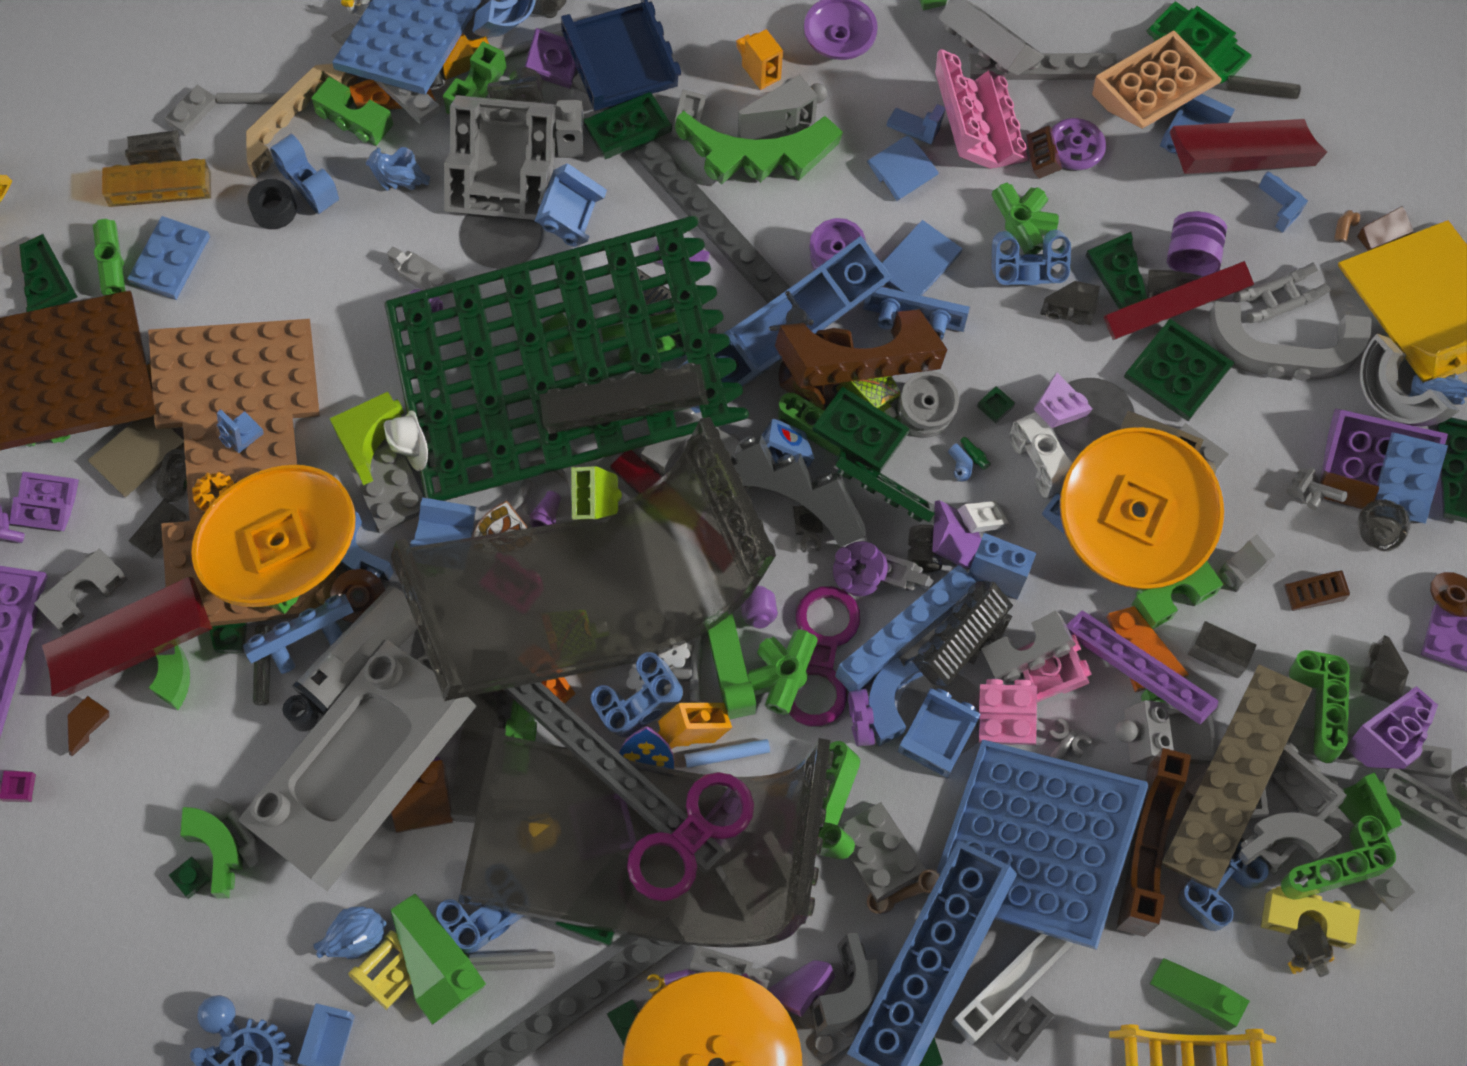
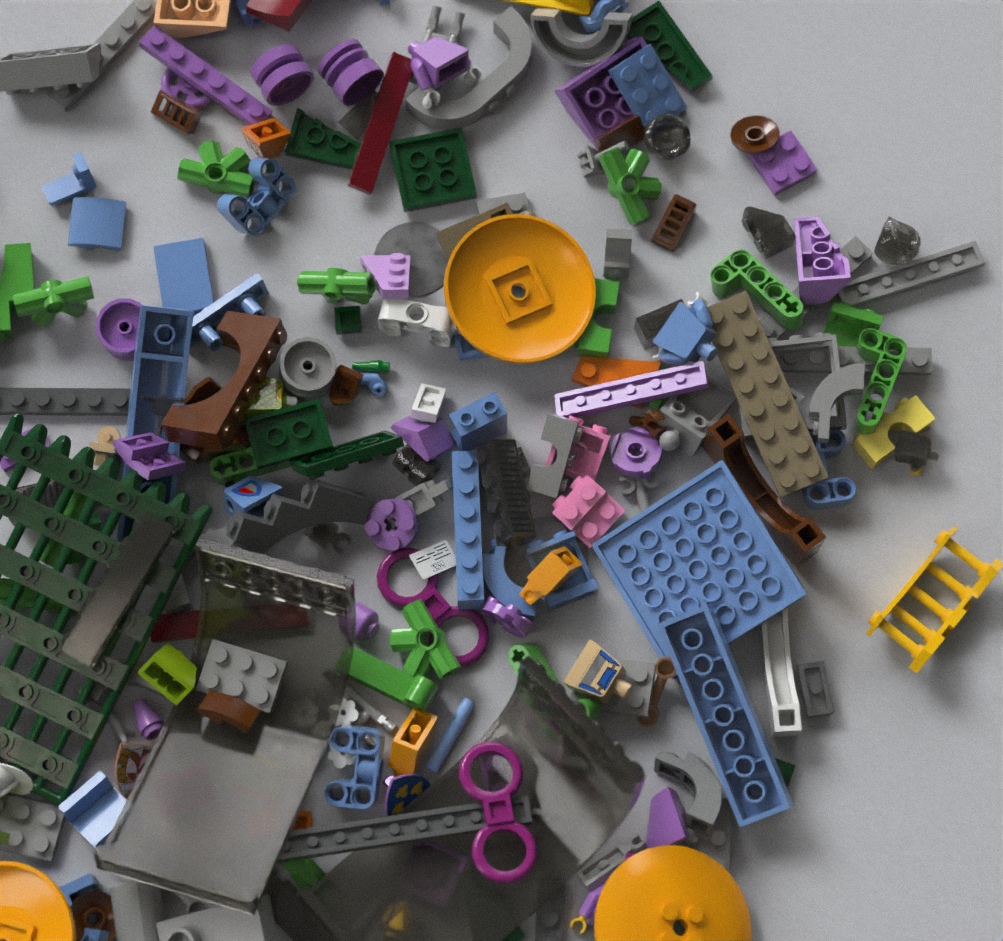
camera: 50 degrees left, 5 degrees up
(602, 561) = (221, 707): none -> reddish brown slope
(637, 552) = (243, 675): none -> light grey plate
(739, 307) = (105, 447): none -> tan hips
(749, 340) = (149, 456): none -> medium lavender slope
(813, 180) = (54, 298): none -> bright green piece
(858, 623) = (433, 559): none -> white sticker
(875, 828) = (598, 675): none -> tan torso
(928, 721) = (550, 574): none -> light orange hinge
(939, 443) = (345, 386): none -> reddish brown plate
(980, 115) = (107, 131): bright pink slope -> none
(1015, 371) = (338, 285): none -> bright green piece
(1073, 303) = (317, 196): clear smoke slope -> none
(1082, 723) = (632, 465): none -> medium lavender plate
(1084, 227) = (267, 137): none -> orange slope
(1089, 149) = (204, 77): none -> medium lavender plate
(1127, 702) = (649, 422): none -> reddish brown bar
(1145, 197) = (282, 74): none -> medium lavender wheel
(1200, 994) = (885, 549): bright green slope -> none
(1229, 670) = (687, 334): none -> medium blue torso
(1268, 300) = (438, 63): none -> medium lavender torso
(1323, 521) = (636, 185): none -> bright green piece

